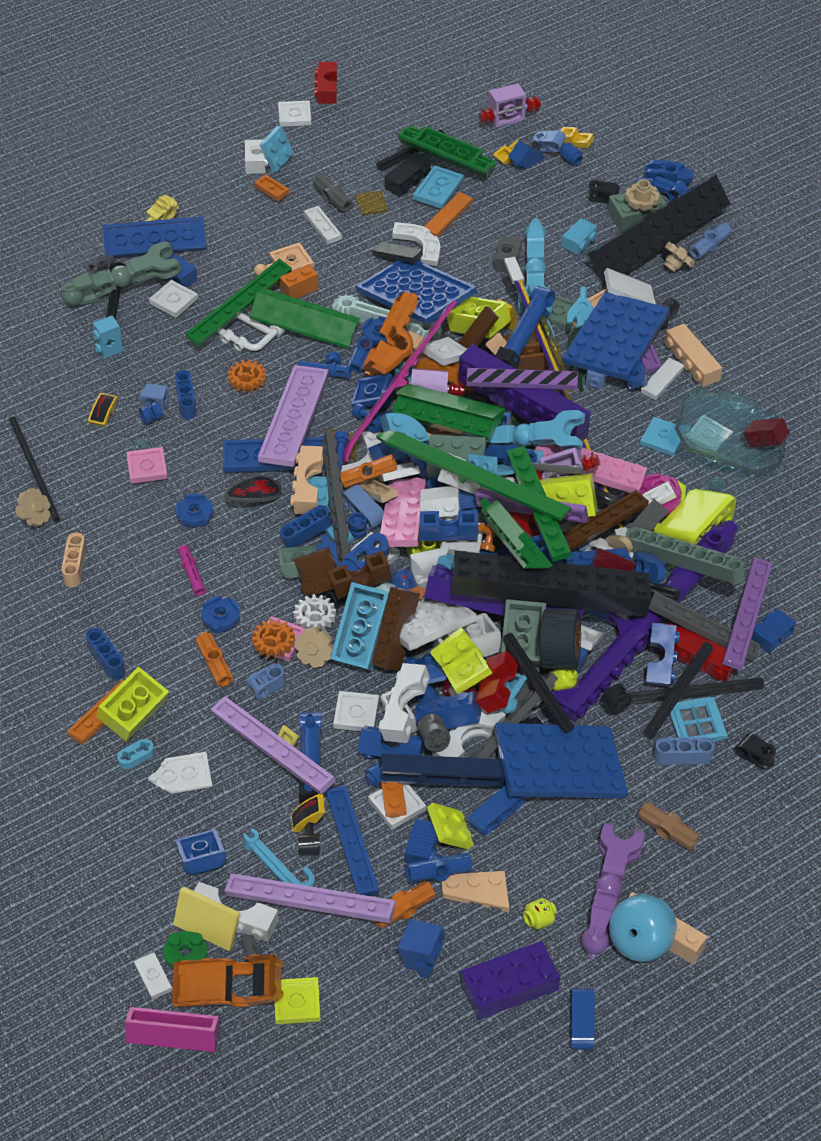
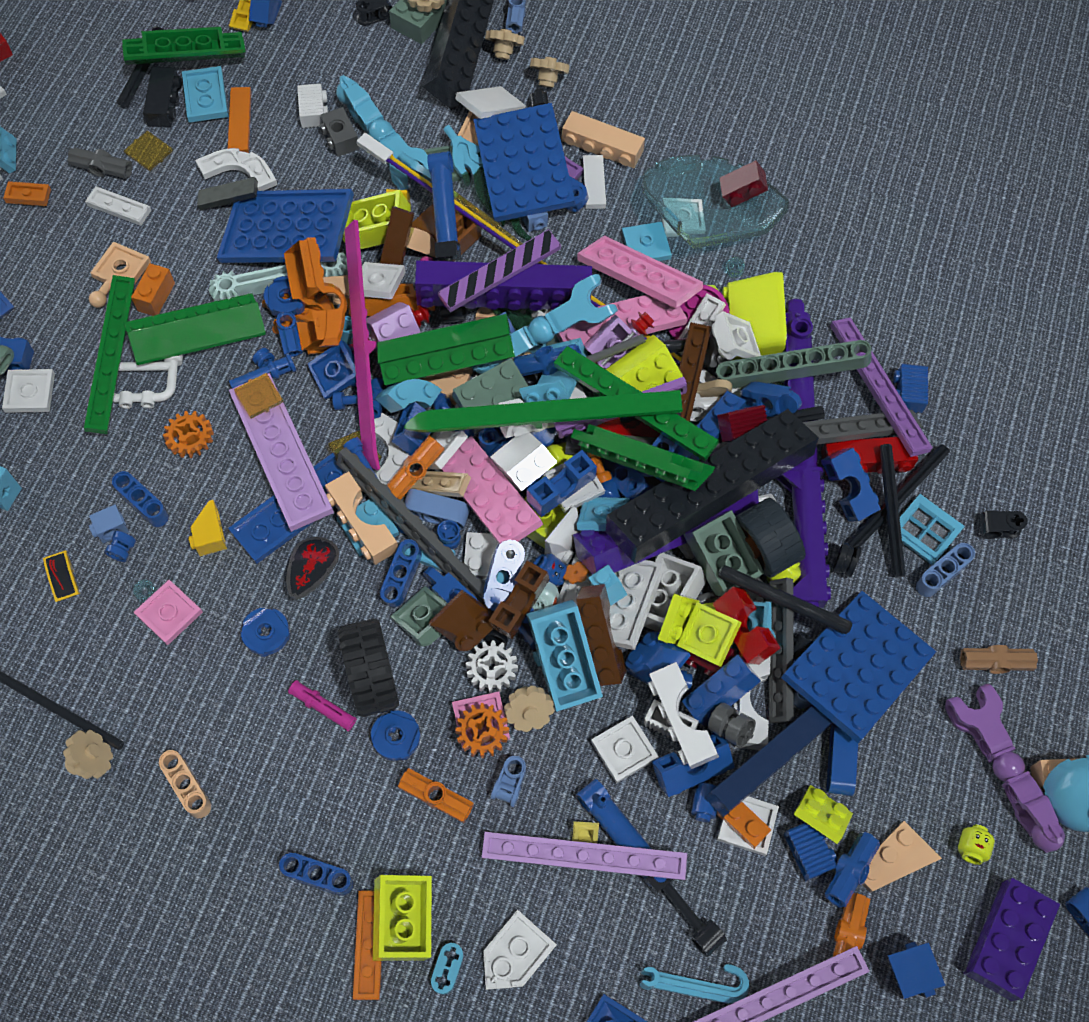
camera: 40 degrees left, 15 degrees up
(210, 435) = (207, 531): none -> yellow slope
(233, 556) = (368, 667): none -> black tyre
(308, 811) = (683, 906): slope -> none
(309, 377) = (258, 395): none -> clear yellow piece
(352, 841) = (748, 903): blue plate -> none
(427, 604) = (613, 585): none -> medium azure brick
(504, 225) = (311, 104): none -> white brick
(579, 236) = (391, 71): medium azure brick -> none
(634, 444) = (640, 271): none -> bright pink plate
(658, 514) = (734, 337): none -> white slope
(693, 291) = (548, 70): none -> tan plant

